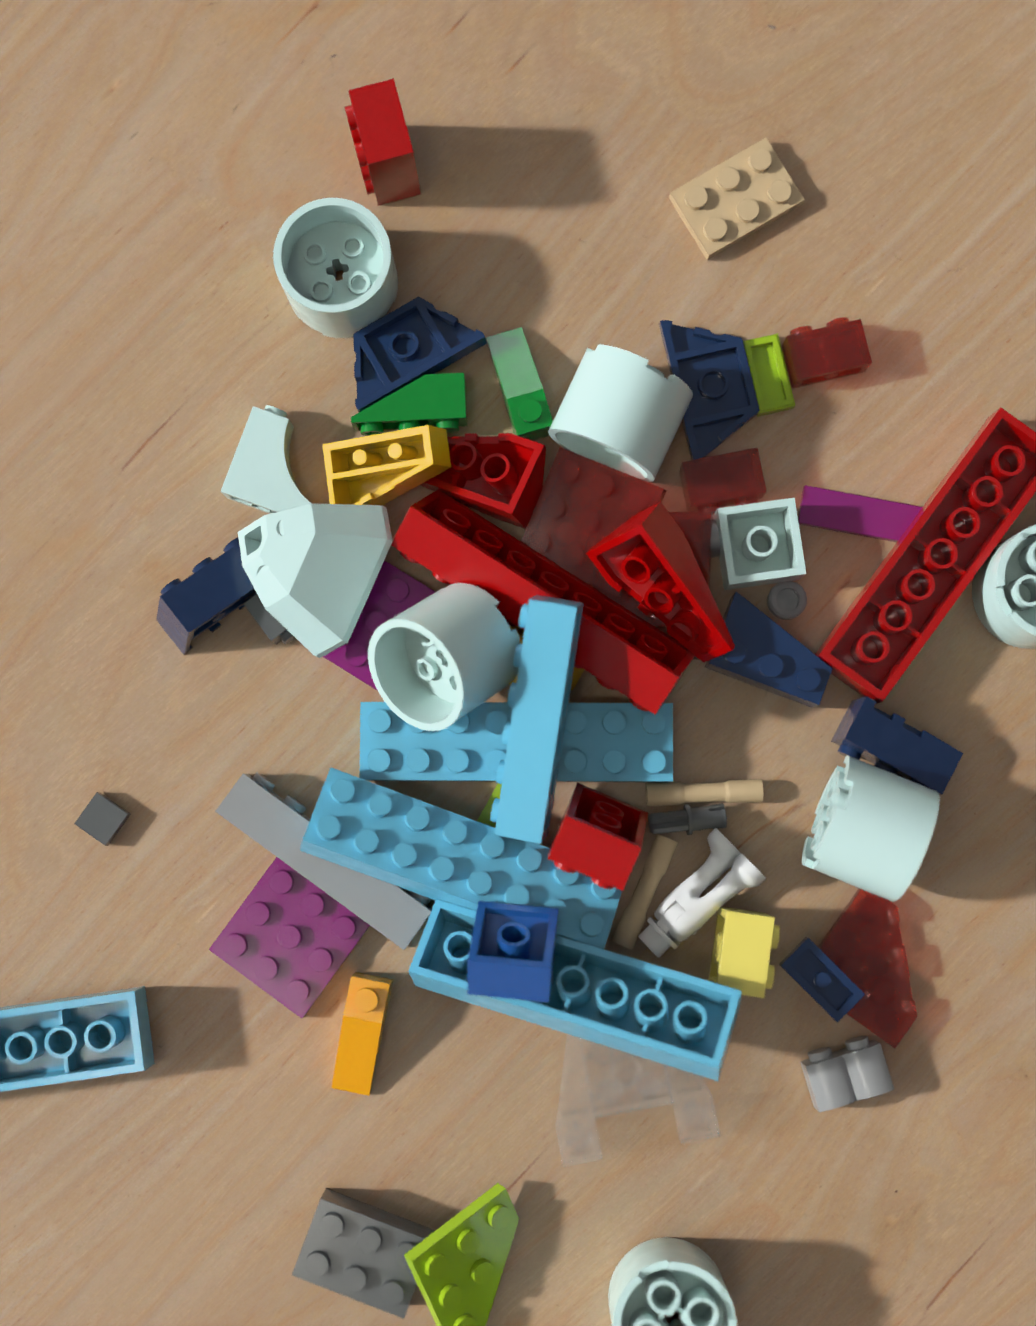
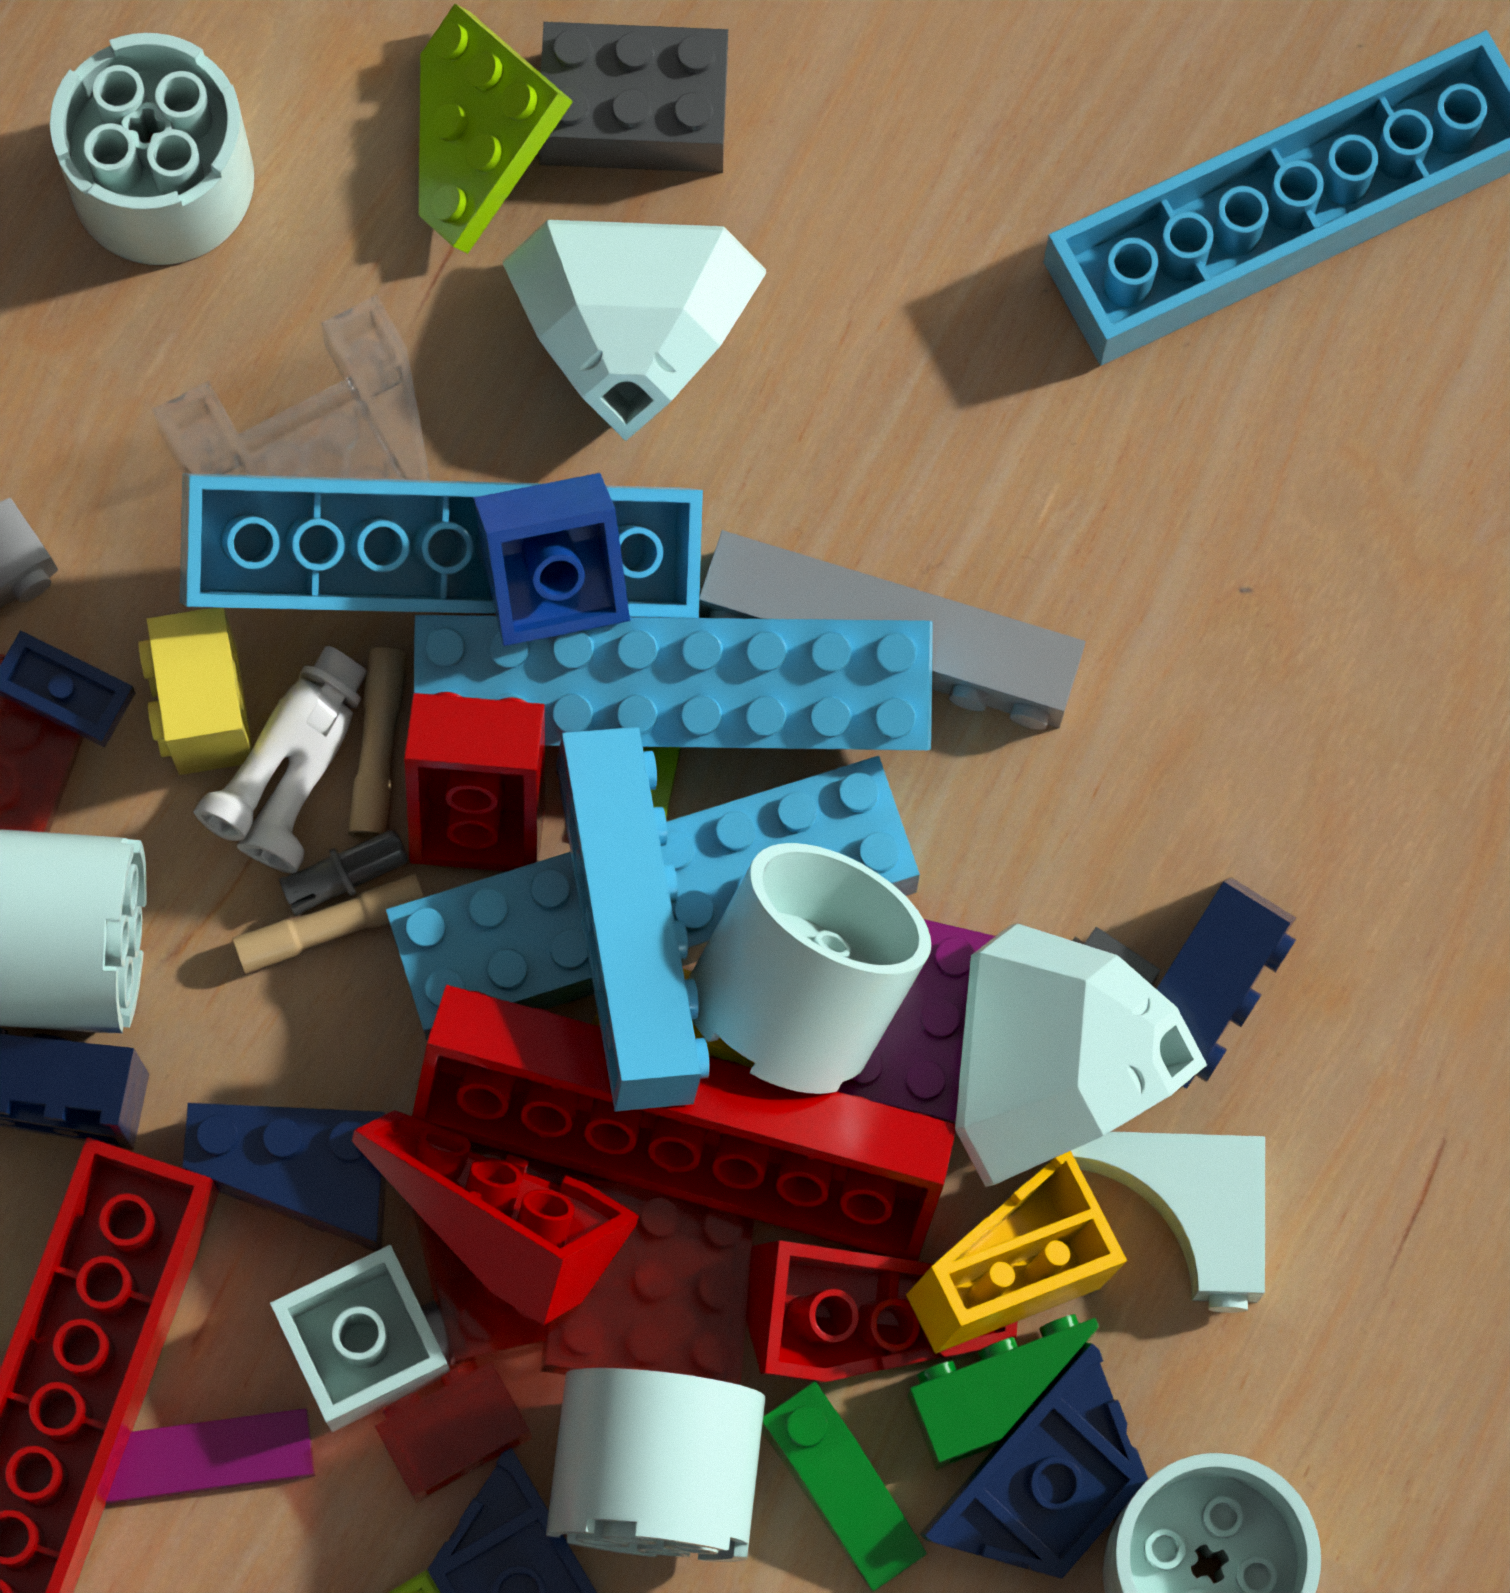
camera: 155 degrees right, 10 degrees down
(102, 818) = (1259, 586): dark grey tile -> none
(289, 937) = (907, 498): magenta plate -> none
(361, 1032) = (748, 409): light orange slope -> none
(411, 1110) = (631, 307): none -> light aqua brick
(786, 600) = (284, 1269): flat silver tile -> none

